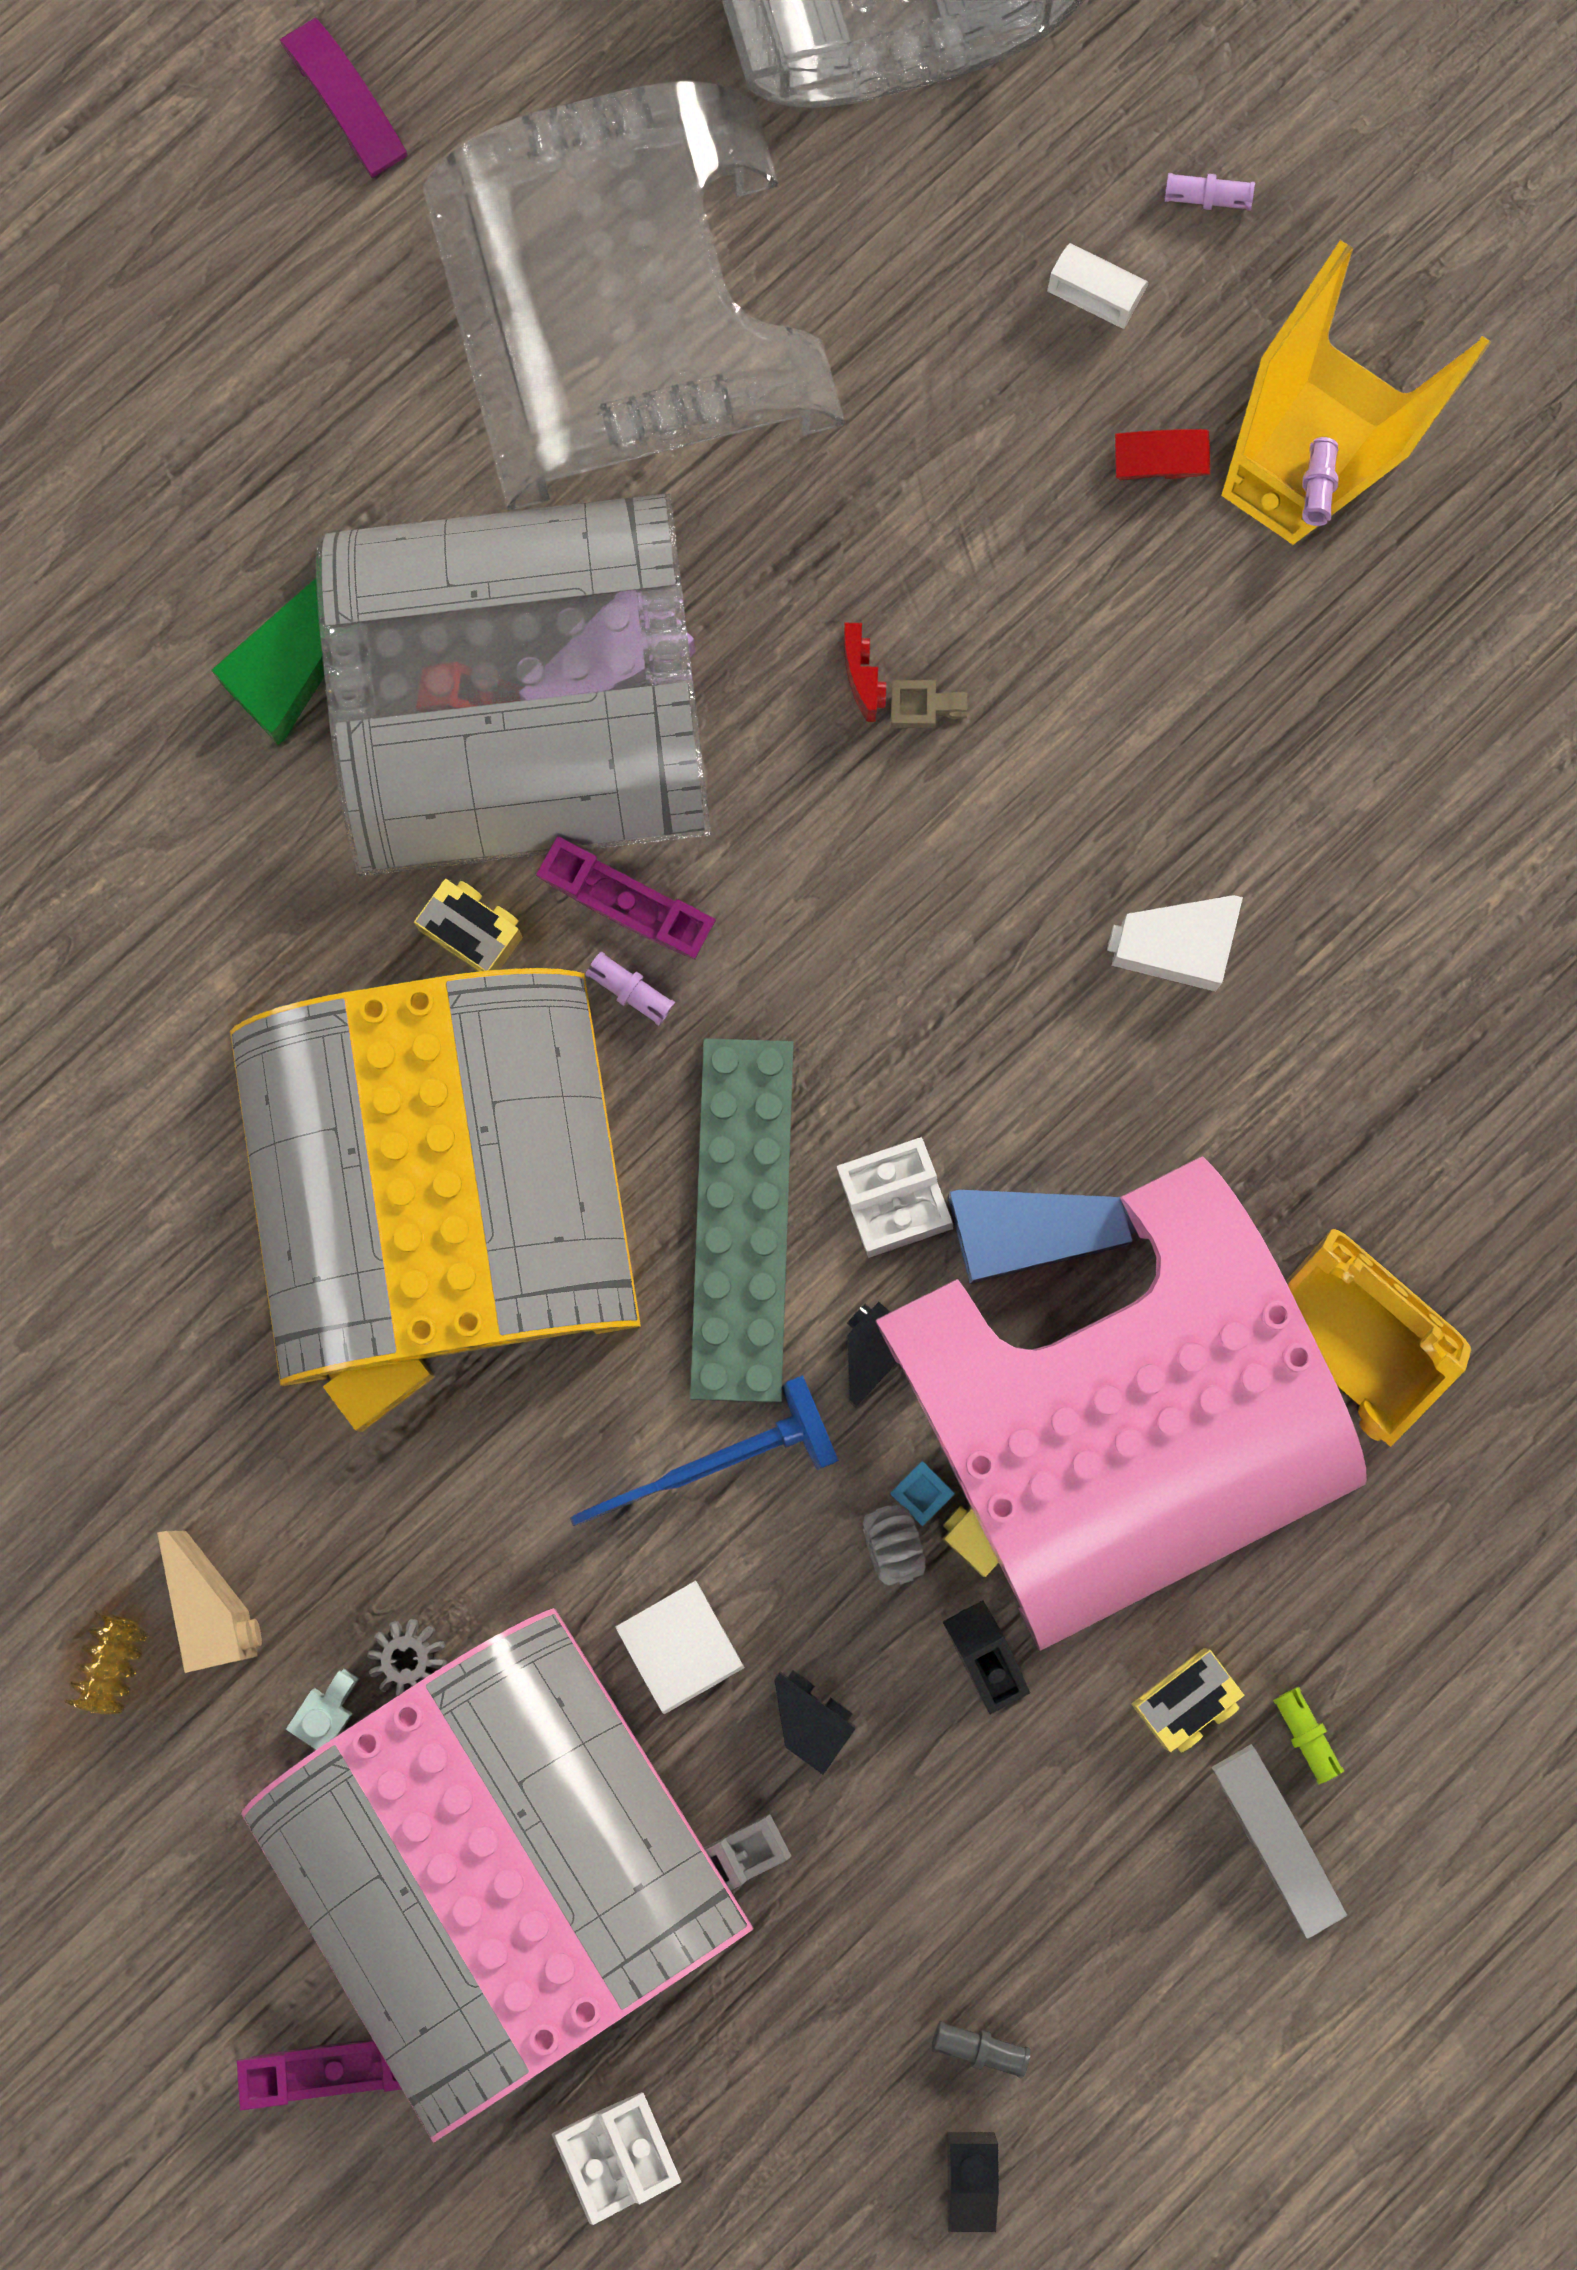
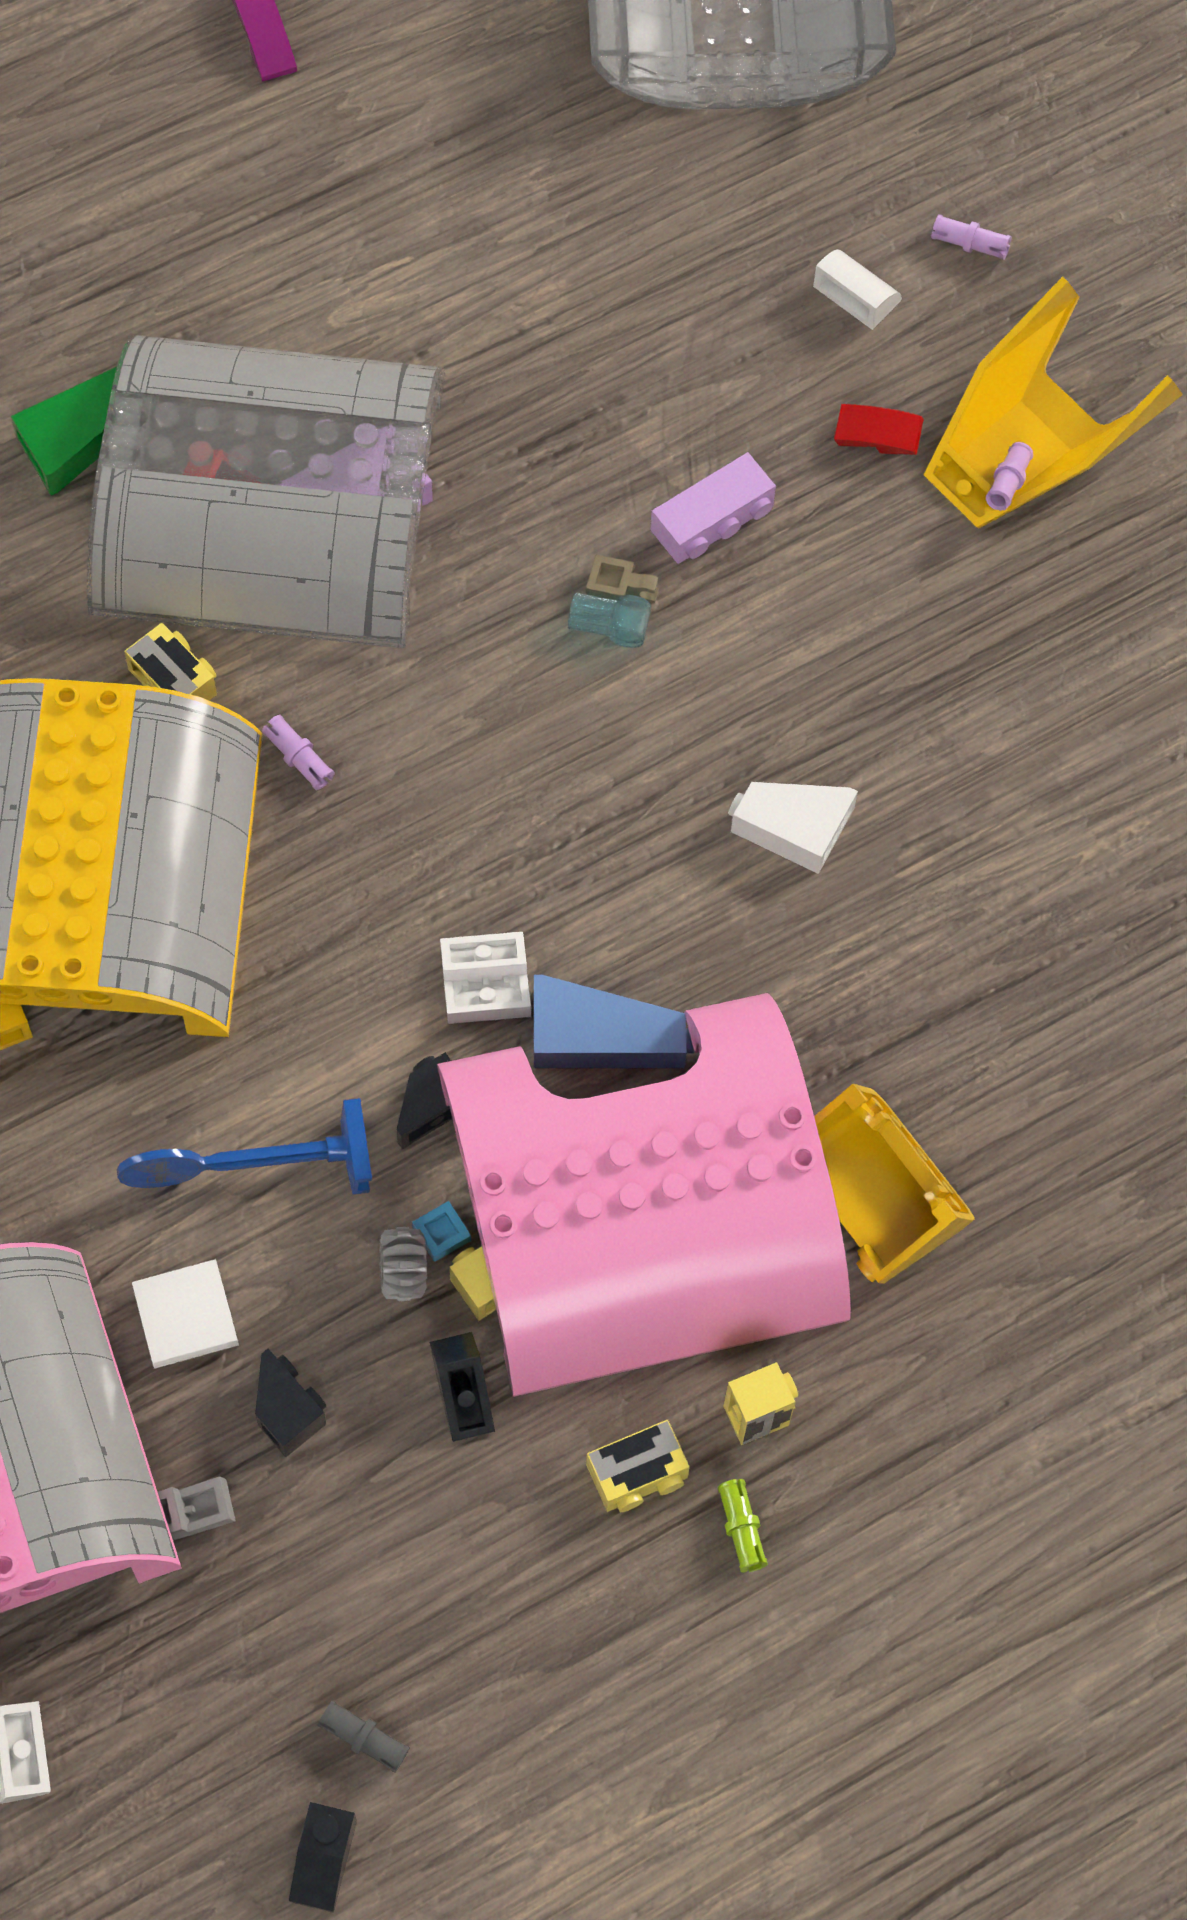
camera: 10 degrees right, 15 degrees down
(601, 290) = (426, 194): clear slope -> none
(625, 899) = (313, 680): magenta slope -> none
(742, 1221) = (343, 968): sand green plate -> none
(863, 680) = (573, 559): red slope -> none
(938, 749) = (620, 619): none -> clear light blue piece
(1006, 594) = (713, 508): none -> lavender brick
(1279, 1841) = (691, 1612): light grey slope -> none
(1302, 1609) = (760, 1402): none -> light yellow brick

